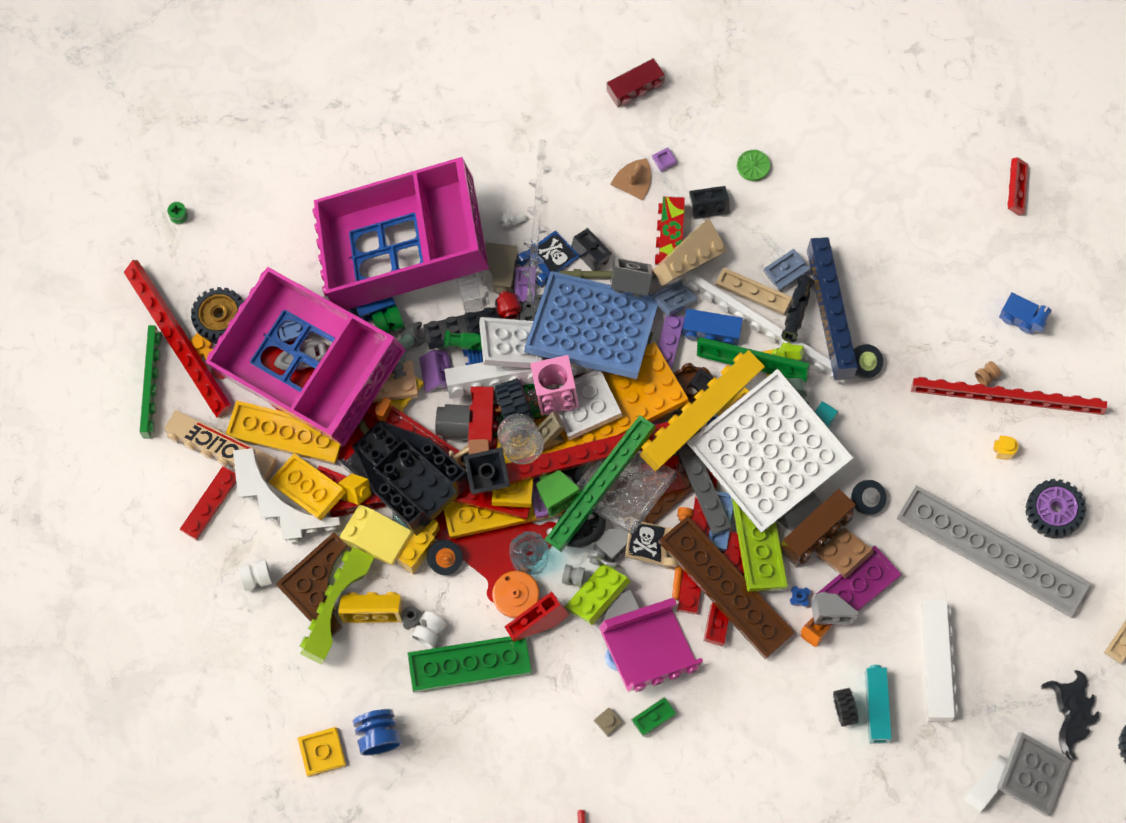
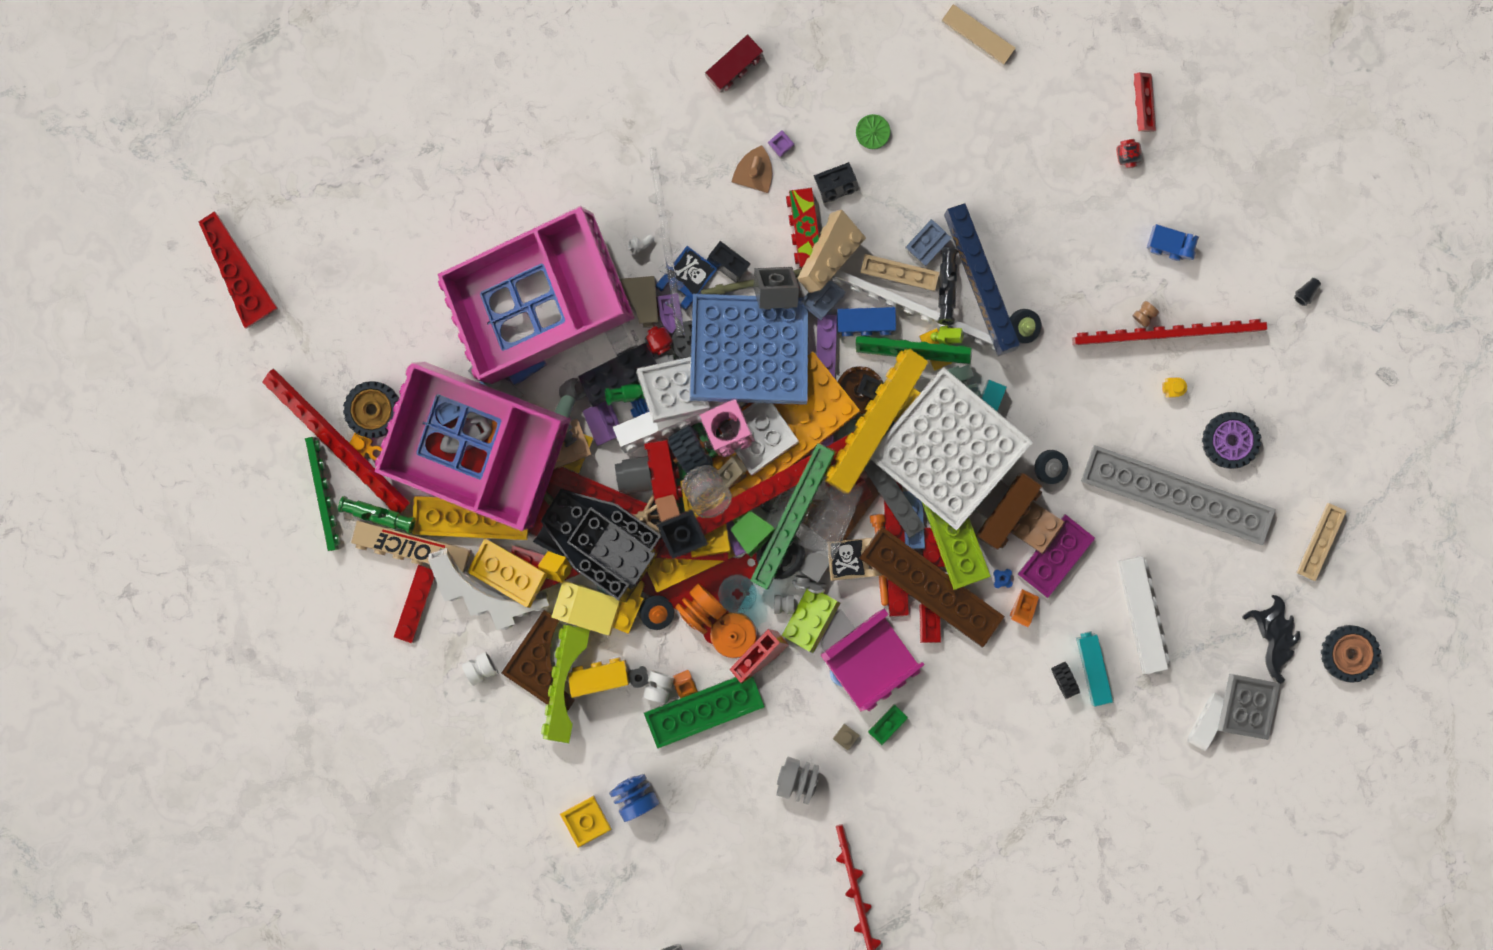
camera: 15 degrees left, 20 degrees up
(131, 183) = (243, 284): none -> red wing
(180, 216) = (302, 307): green wheel -> none
(196, 409) = (374, 513): none -> green piece
(383, 409) = (562, 479): orange plate -> none
(389, 321) = (543, 382): green wheel -> none
(455, 634) = (684, 684): none -> orange slope
(490, 558) = (700, 609): none -> orange wheel
(546, 749) = (797, 780): none -> light grey wheel
(832, 610) = (1036, 591): light grey slope -> none
(869, 101) = (978, 34): none -> tan tile
(995, 227) = (1129, 153): none -> head

